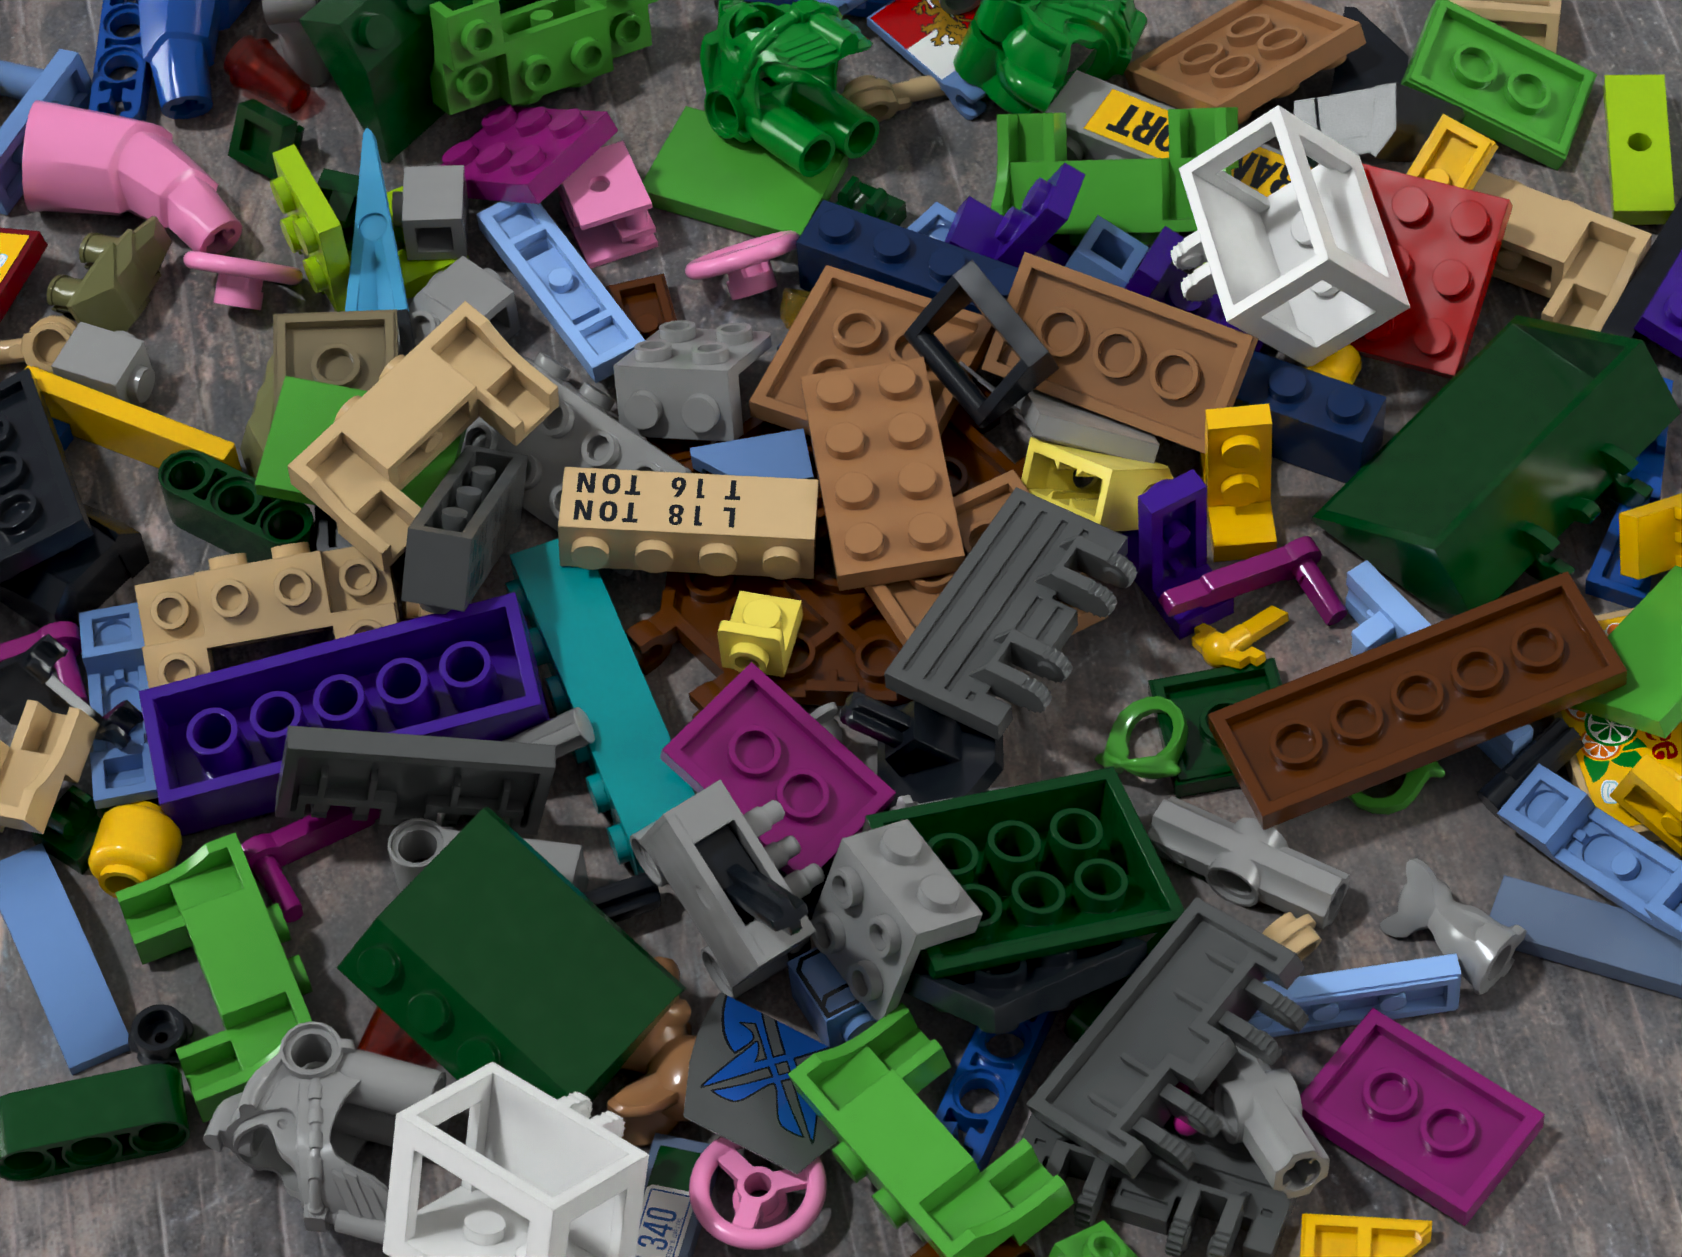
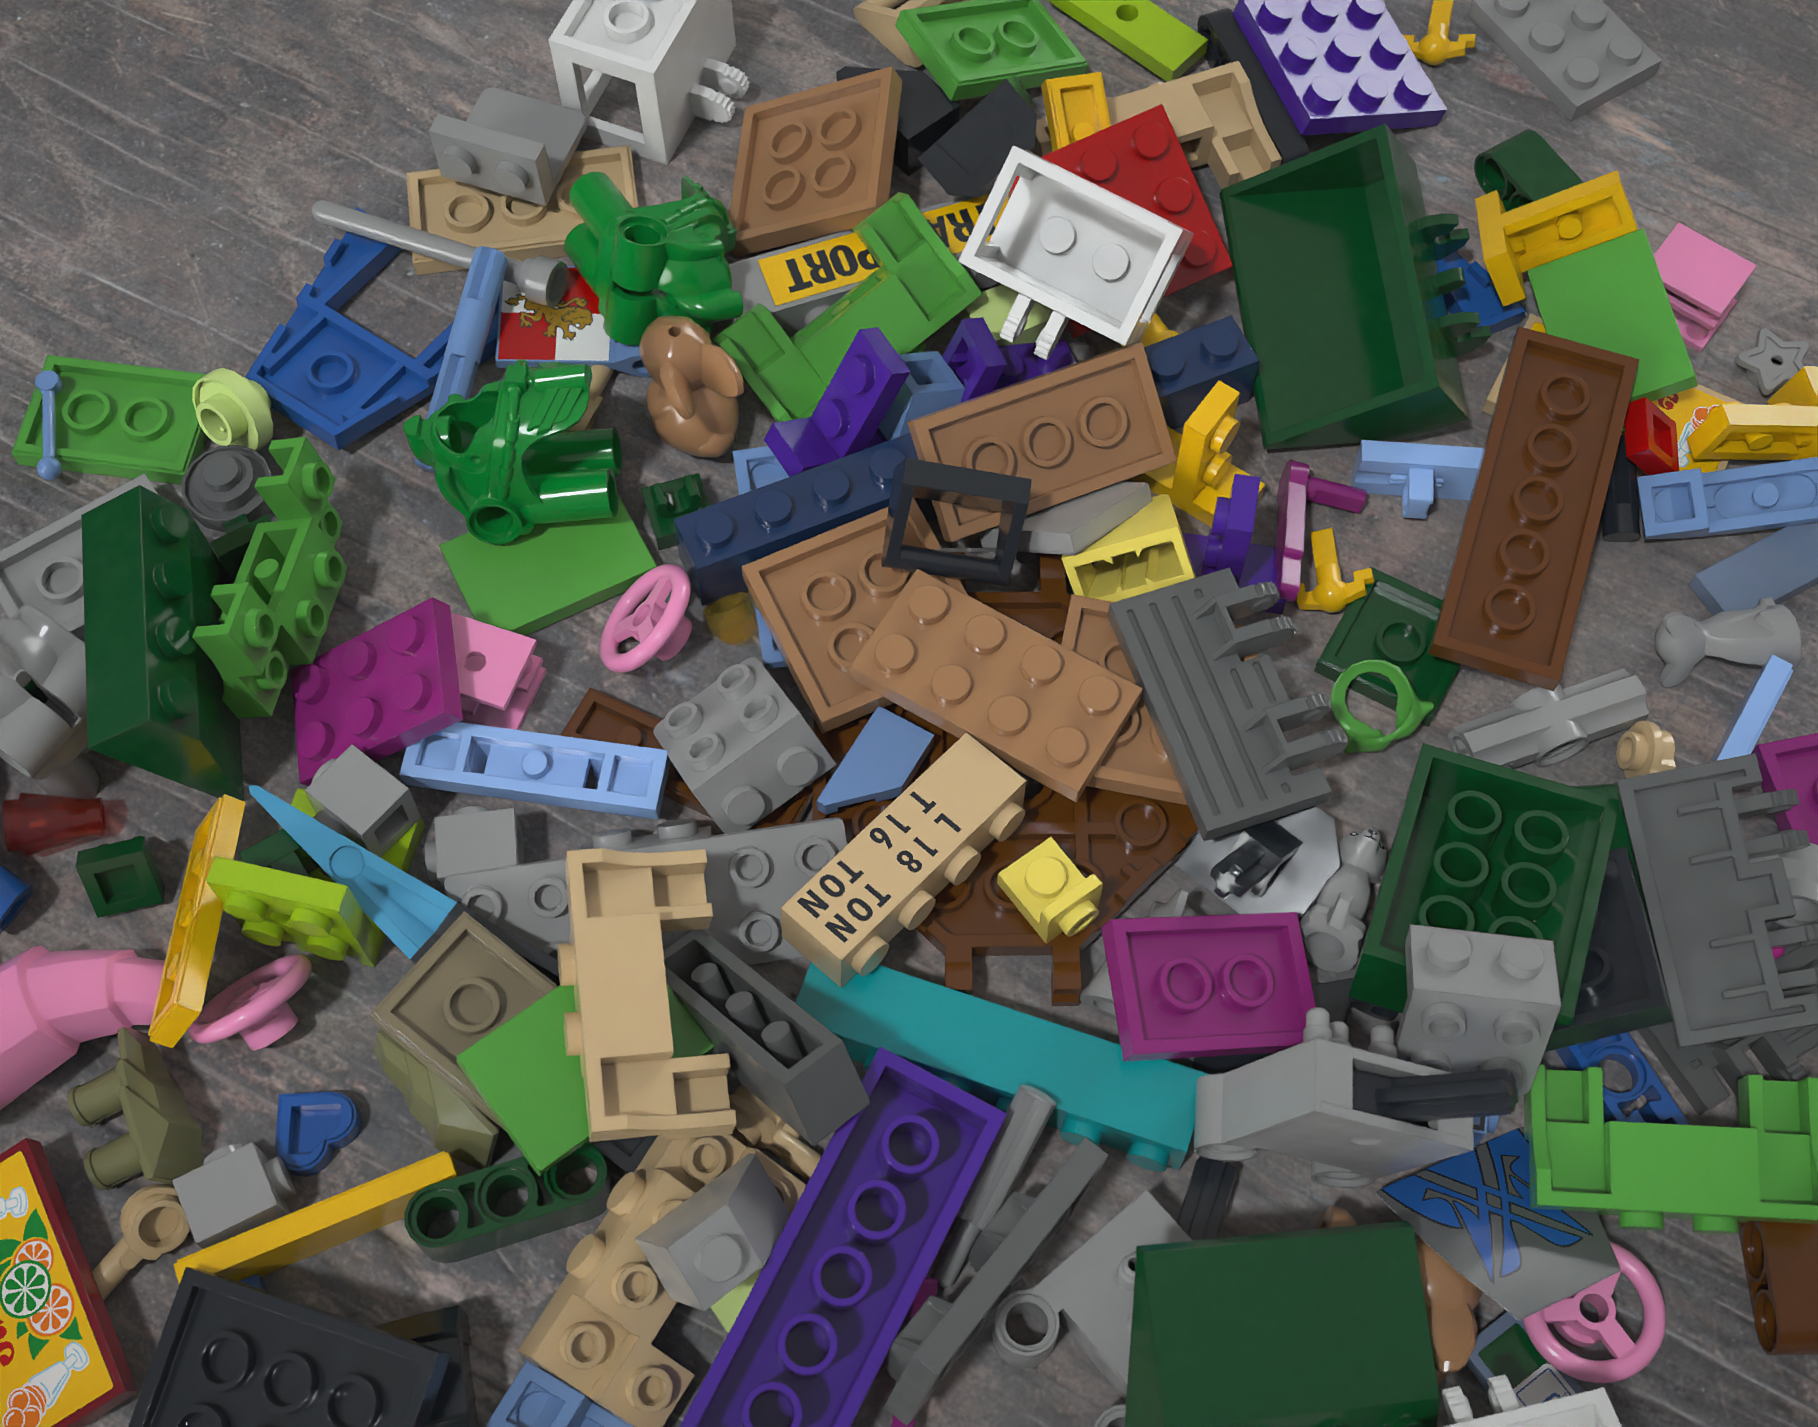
camera: 55 degrees left, 10 degrees up
(194, 380) = (312, 1128): none -> blue tile
(248, 195) = (195, 926): none -> yellow tile
(303, 606) = (716, 1235): none -> light grey slope
(950, 140) = (692, 387): none -> medium nougat animal
(1588, 748) = (1650, 438): none -> red tile

